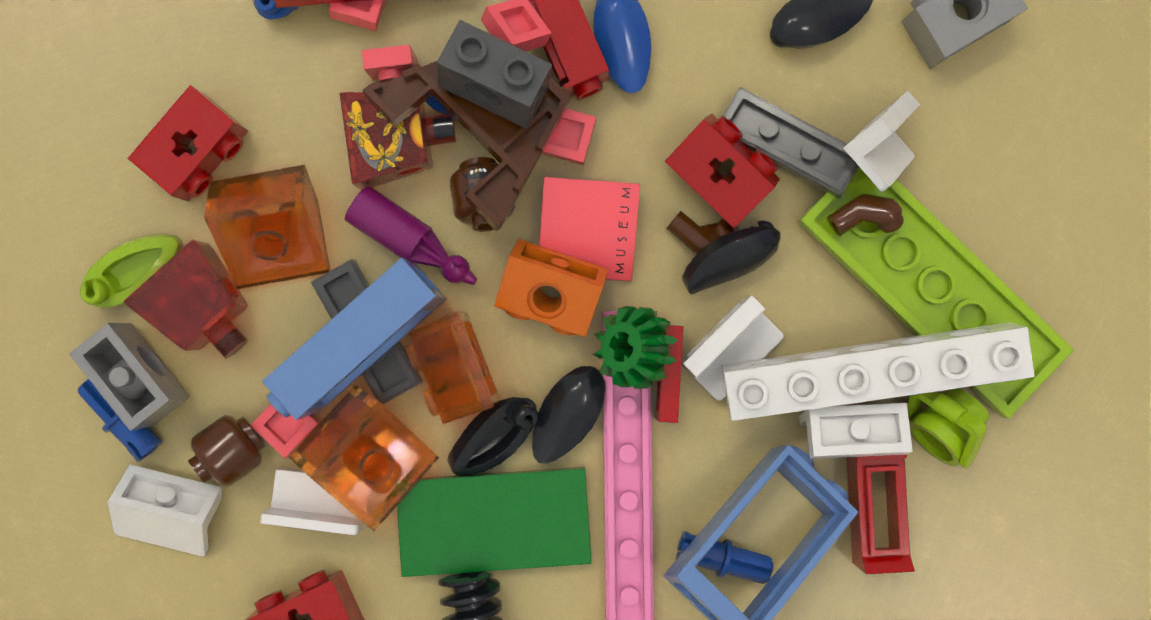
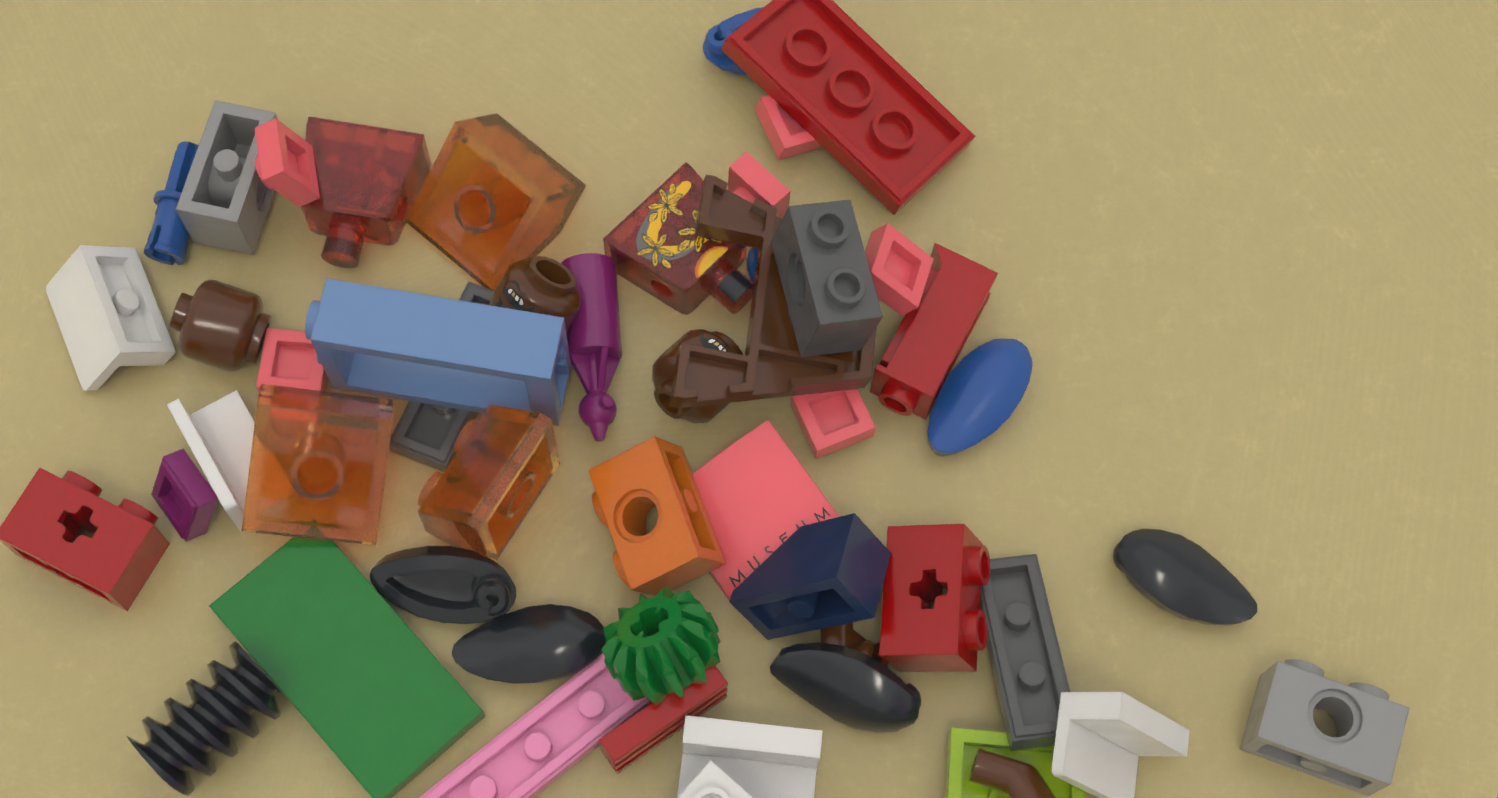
camera: 50 degrees right, 20 degrees down
(127, 268) = (340, 98): lime arm -> none
(150, 341) = (286, 163): none -> coral plate
(165, 149) = (518, 71): red brick -> none
(321, 546) = (184, 495): none -> magenta tile
(361, 255) = (539, 287): none -> reddish brown head
(663, 226) = (816, 579): none -> dark blue slope

